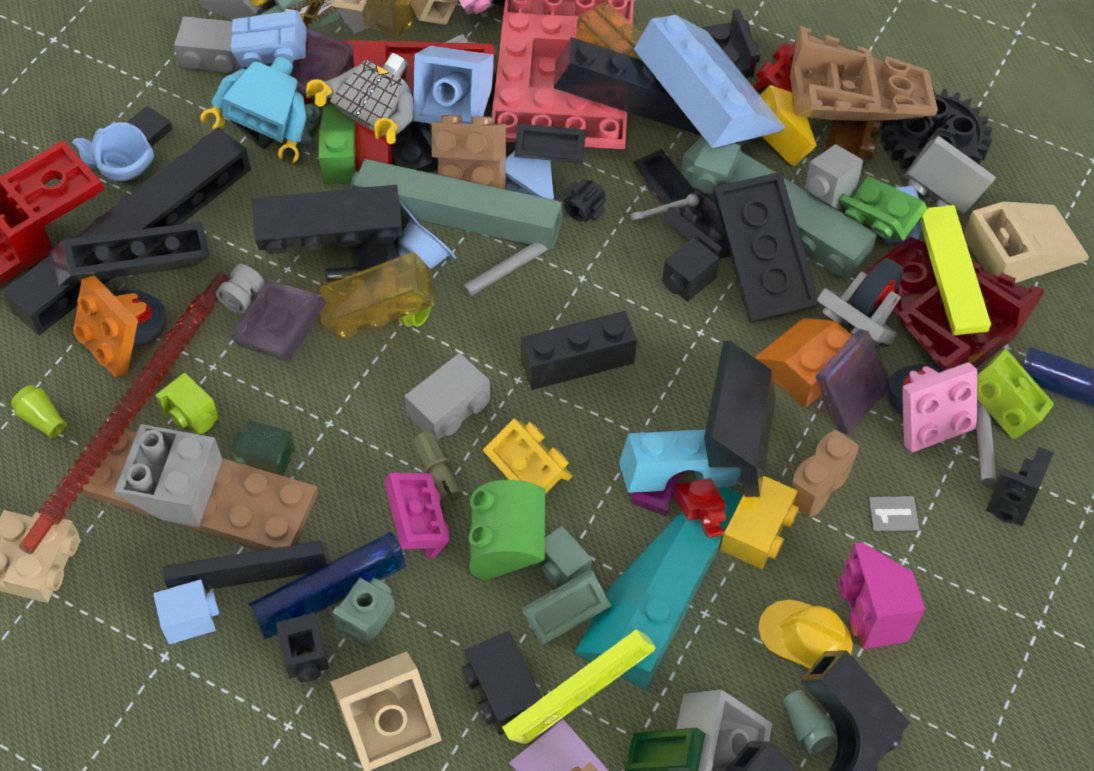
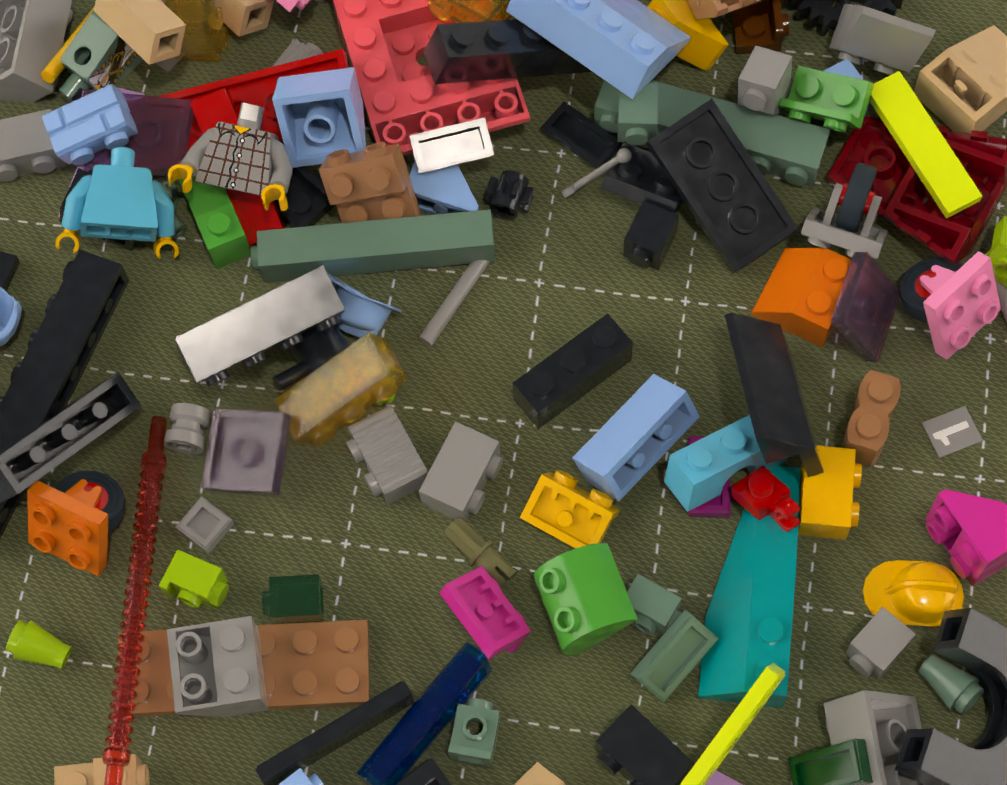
camera: 15 degrees left, 10 degrees up
(220, 368) = (204, 525): none -> light grey tile
(393, 363) = (388, 455): none -> light grey brick
(608, 417) = (636, 437): none -> light blue brick
(755, 664) = (879, 644): none -> light grey brick

